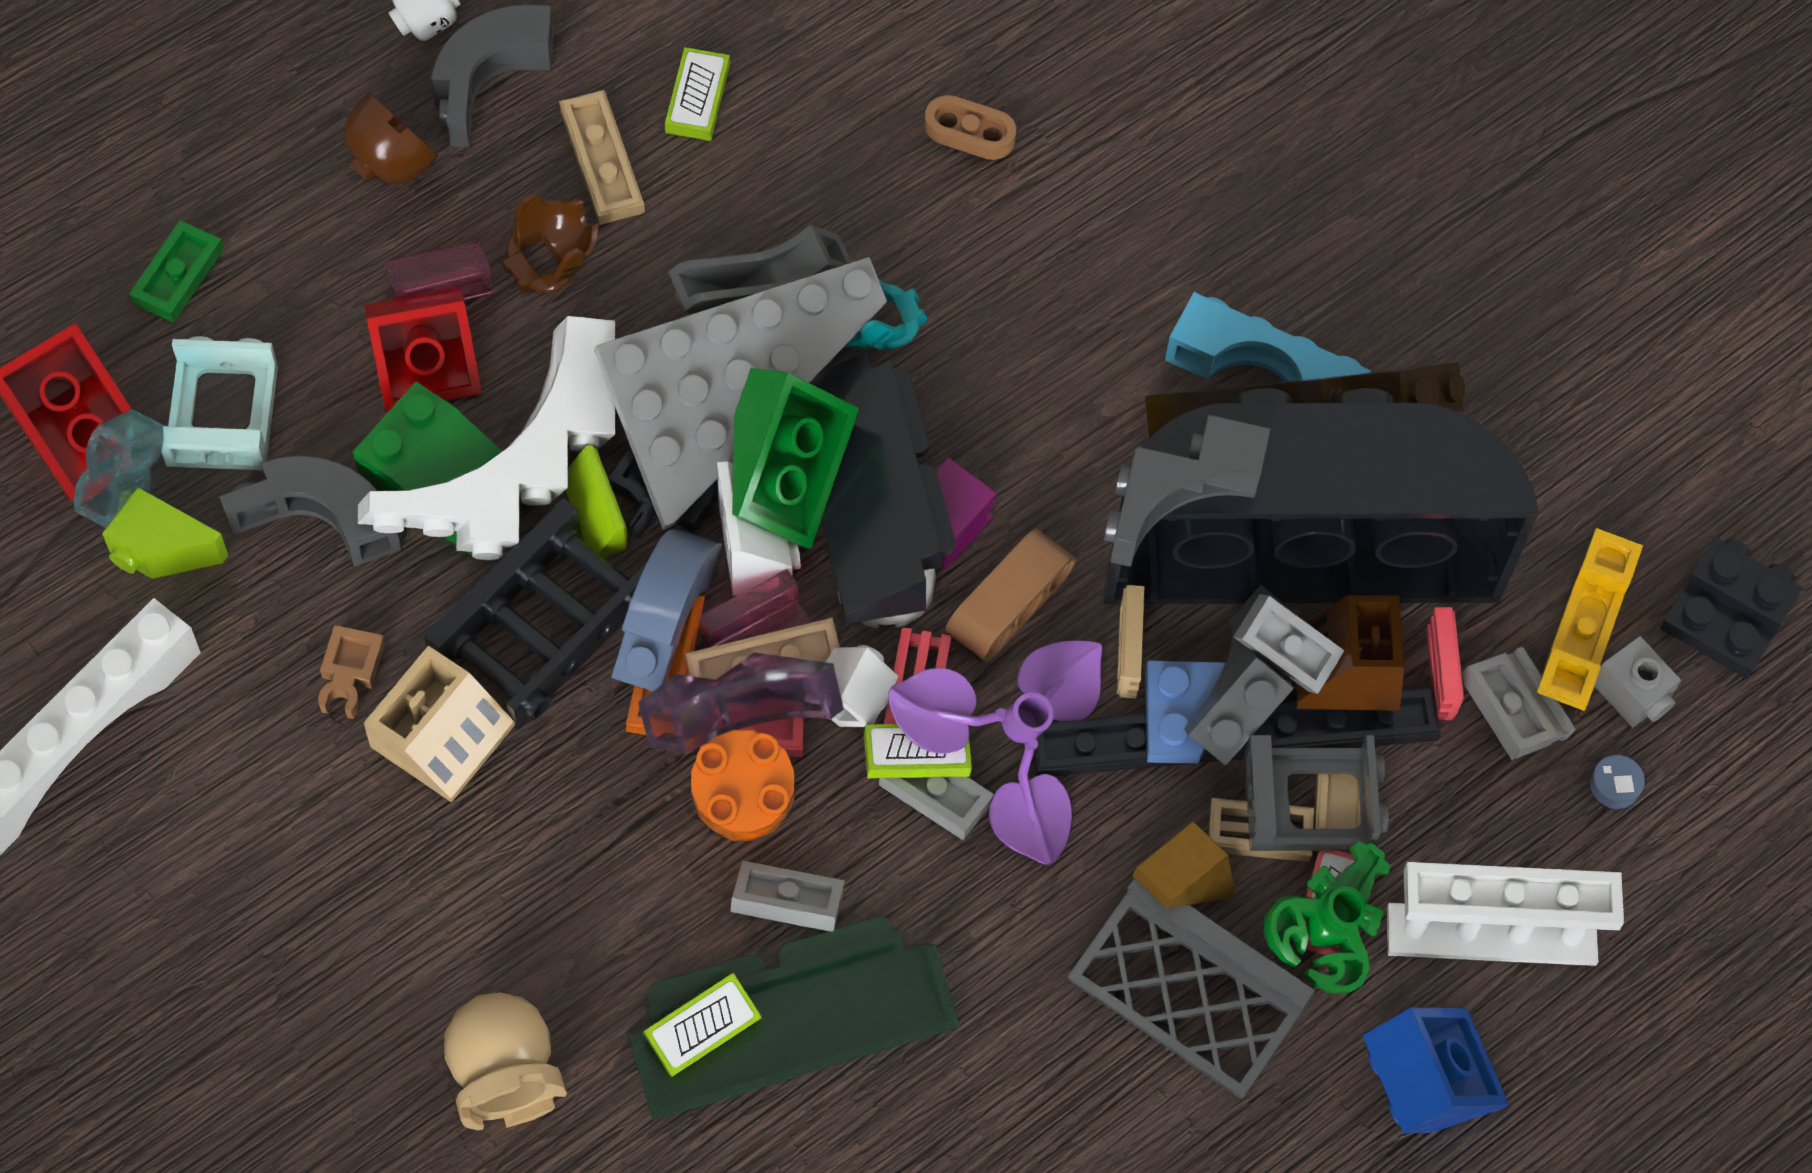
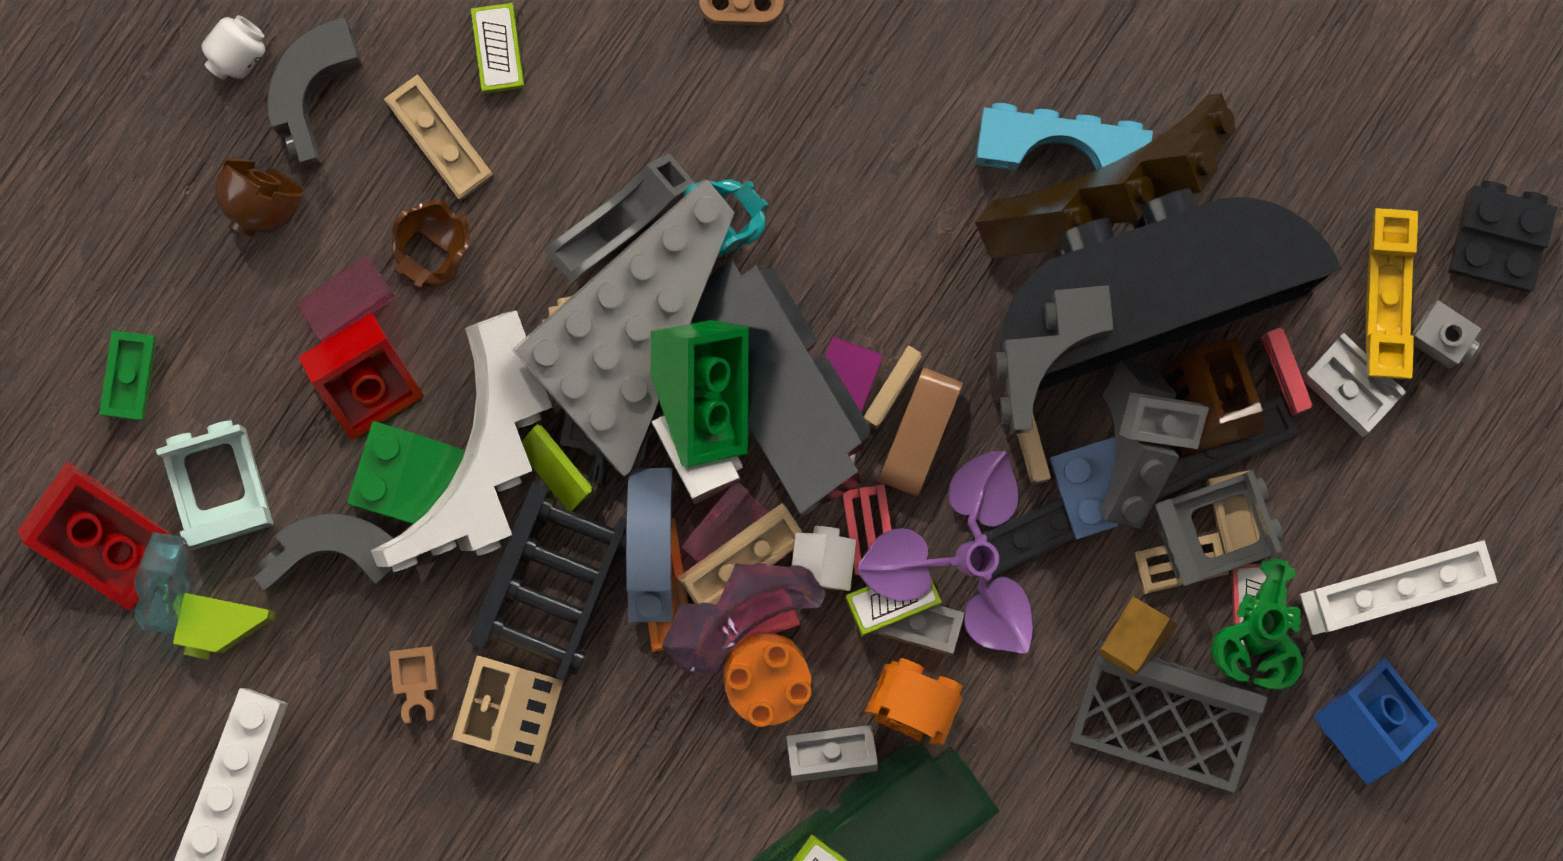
camera: 15 degrees left, 20 degrees up
(902, 864) = (915, 702): none -> orange brick
(994, 540) = (892, 387): none -> tan tile
(1617, 781) = (1450, 424): sand blue tile -> none

